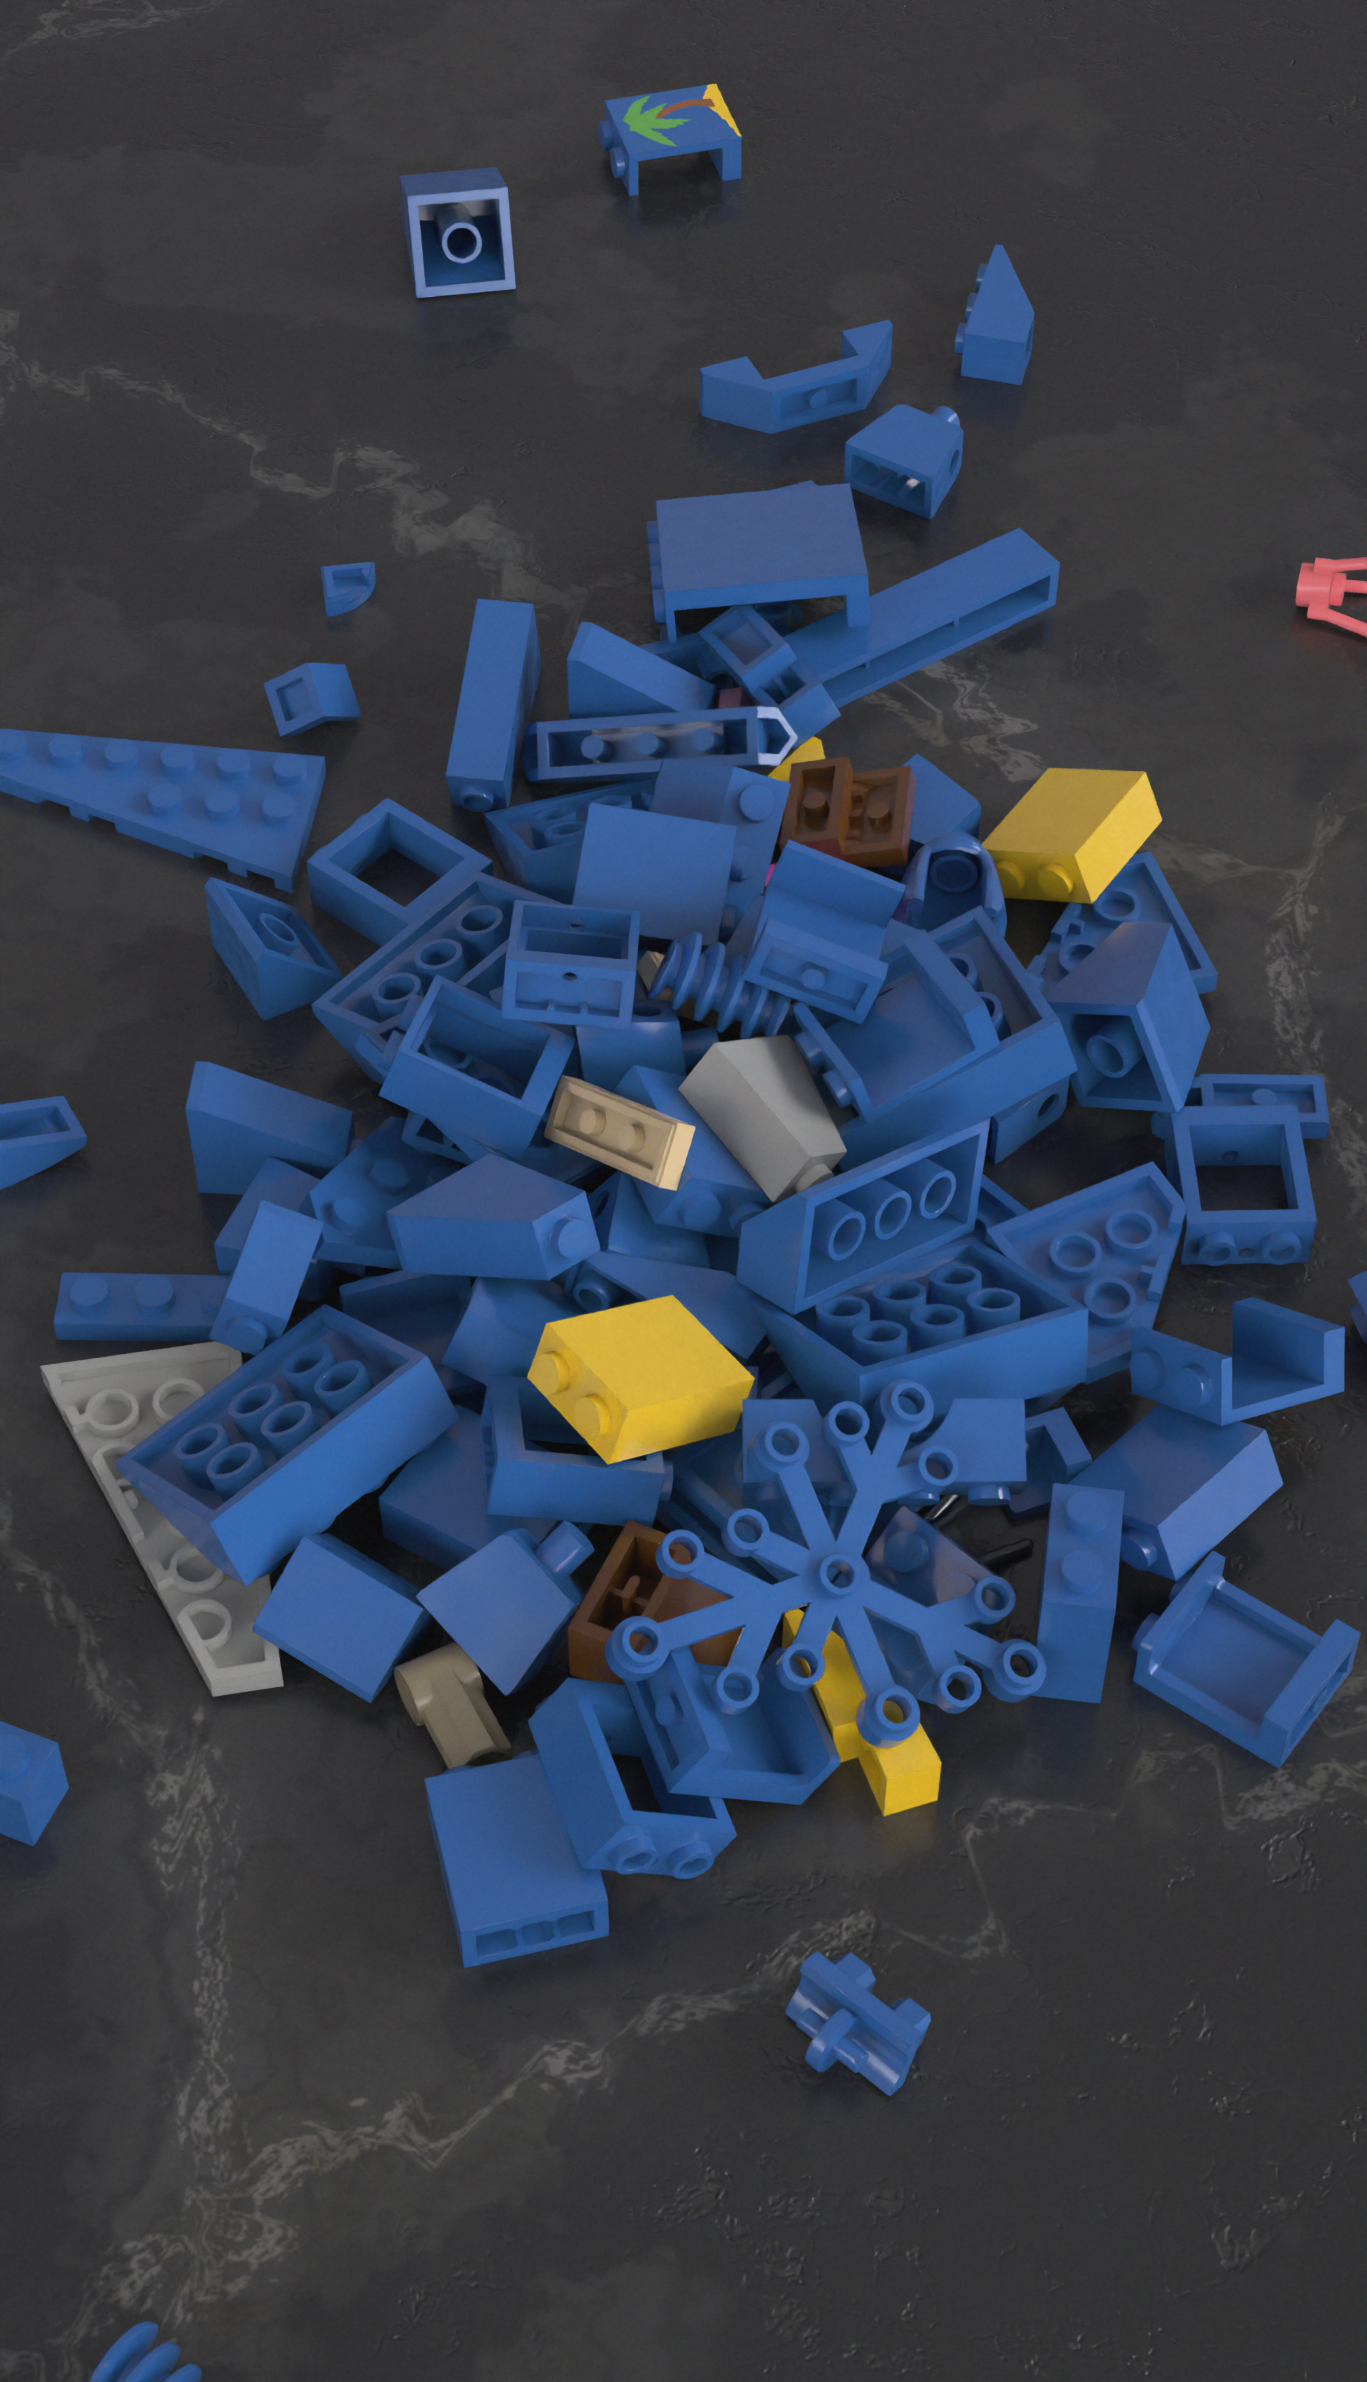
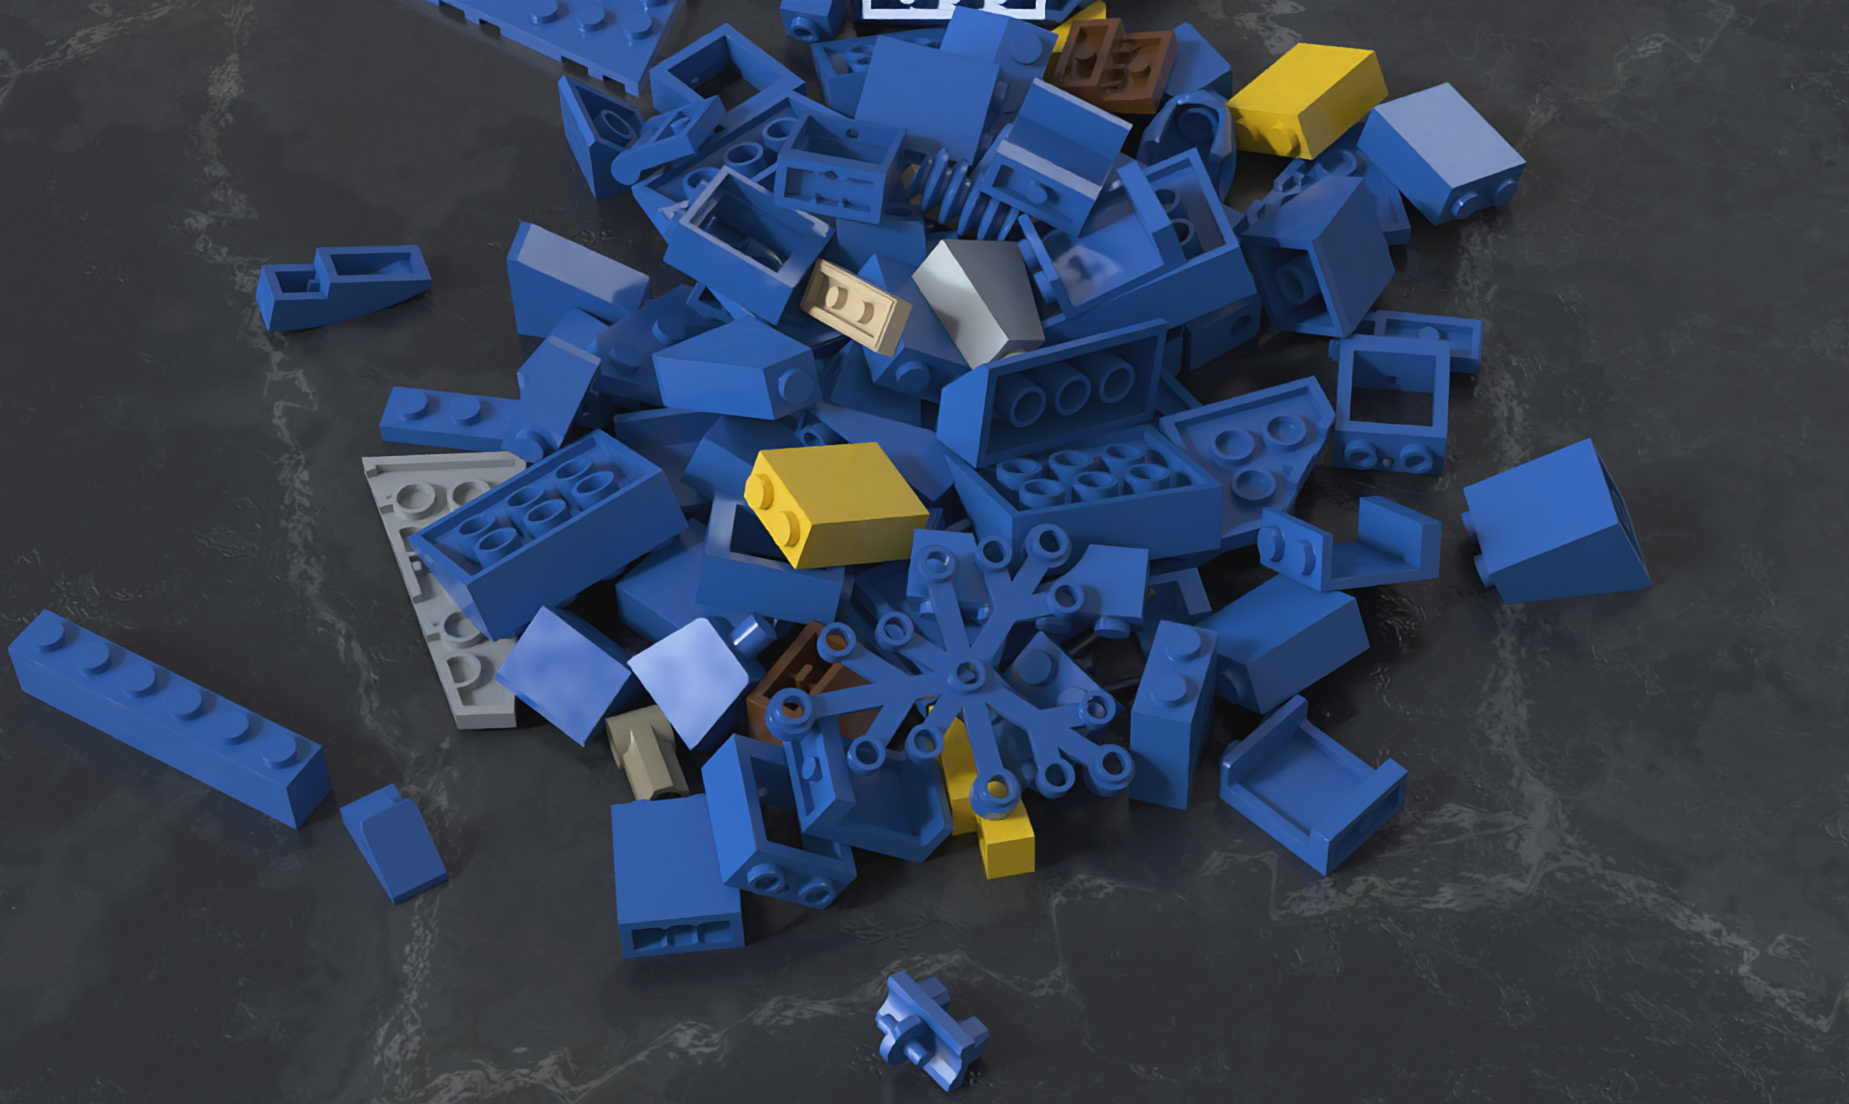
camera: 10 degrees right, 0 degrees up
(160, 1851) = (395, 842): none -> blue slope
(347, 942) = (669, 138): none -> blue plate
(1236, 885) = (1441, 154): none -> brick

